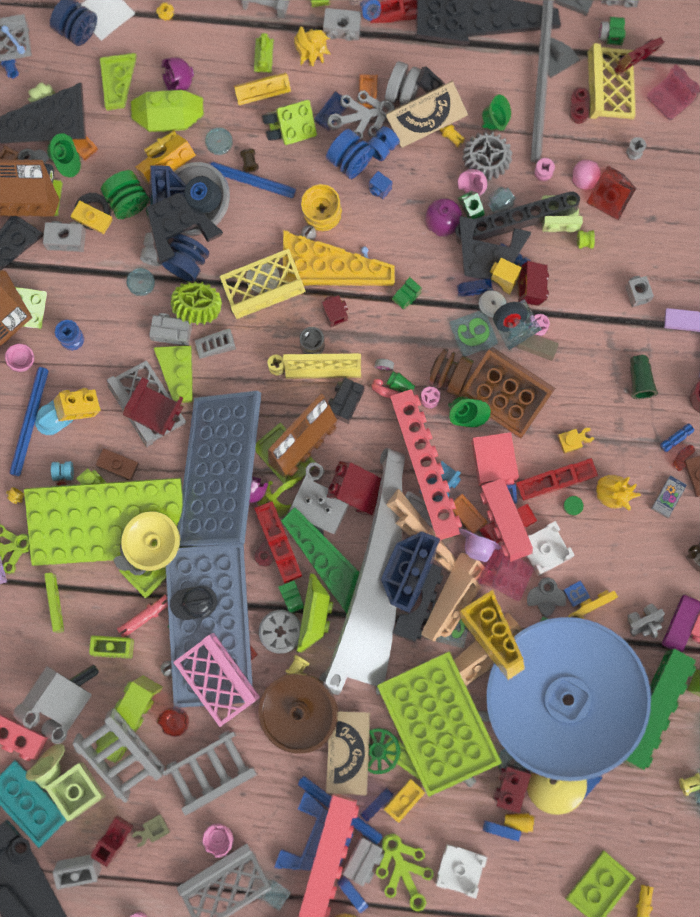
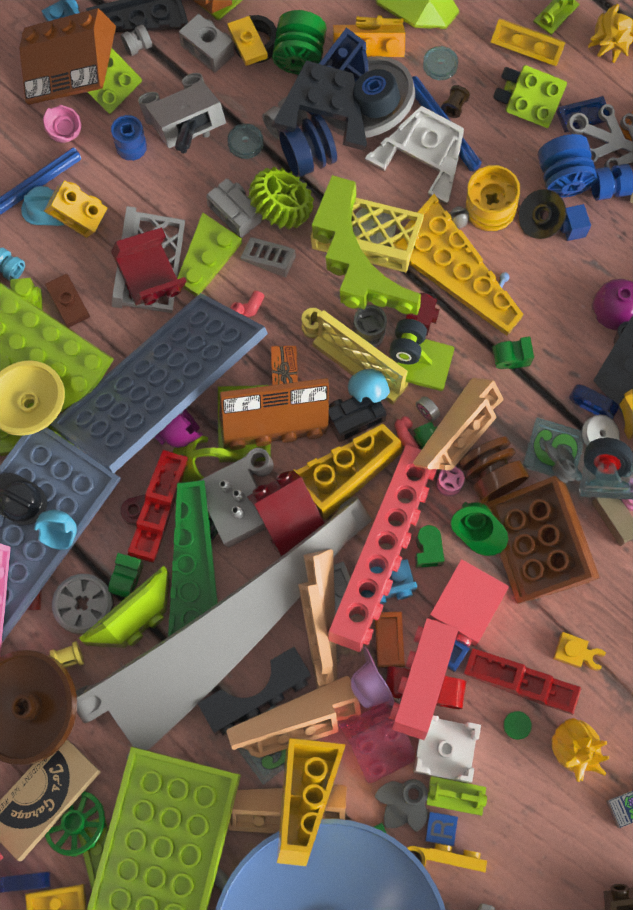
camera: 35 degrees right, 5 degrees down
(18, 268) = (136, 40): none -> light grey wheel
(93, 295) = (184, 113): none -> light grey piece
(231, 384) = (251, 308): none -> coral arm
(234, 601) = (56, 529): none -> medium azure hair
(255, 198) = (428, 140): none -> white wing
(267, 311) = (345, 257): none -> lime arch
(282, 406) = (284, 364): none -> tile
(341, 377) = (369, 384): none -> medium azure hair
(350, 199) = (533, 208): none -> black dish
(356, 337) = (422, 358): none -> lime plate
(368, 435) = (349, 468): none -> yellow wedge
(409, 569) = (269, 646): dark blue wedge -> none
(412, 360) = (461, 426): none -> light nougat wedge
(450, 444) = (431, 547): none -> green leg
(489, 340) = (564, 463): none -> dark grey plate
(571, 569) = (456, 796): none -> lime hinge

